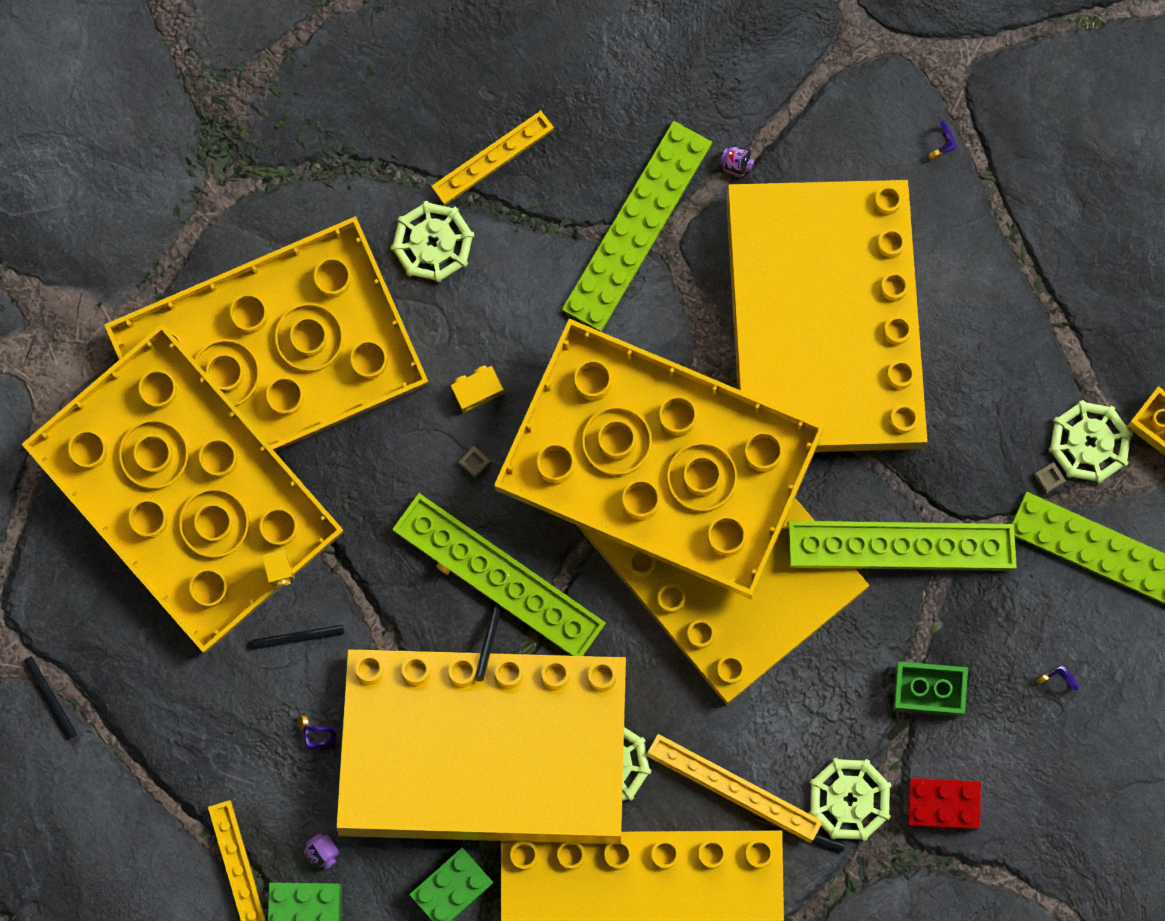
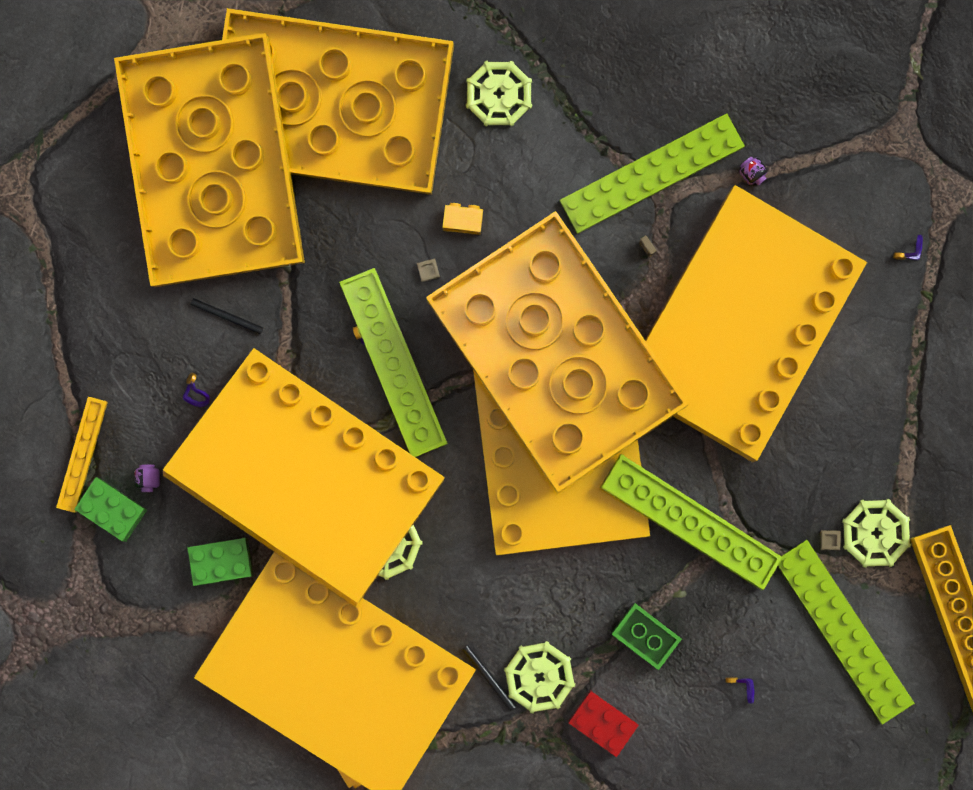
camera: 30 degrees right, 5 degrees up
(51, 698) = (28, 249): black bar -> none
(278, 568) = (237, 260): yellow brick -> none
(488, 642) = (354, 405): black bar -> none
(492, 158) = (580, 59): yellow plate -> none
(680, 300) = (647, 246): none -> dark tan tile
(734, 788) = (462, 618): yellow plate -> none

